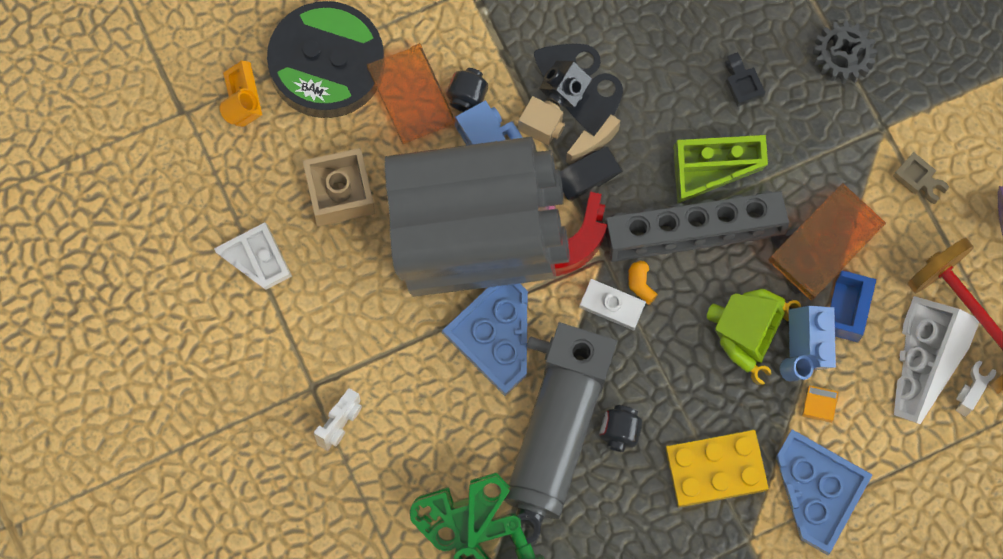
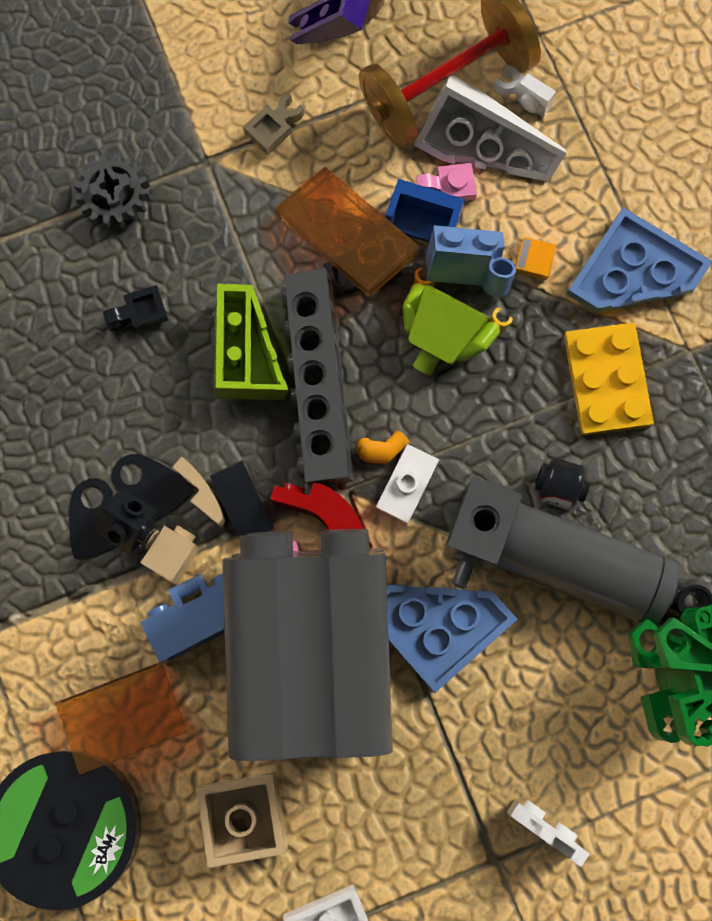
camera: 80 degrees left, 5 degrees up
(466, 89) = (122, 645): black head -> none
(881, 331) = (453, 180): none -> bright pink plate

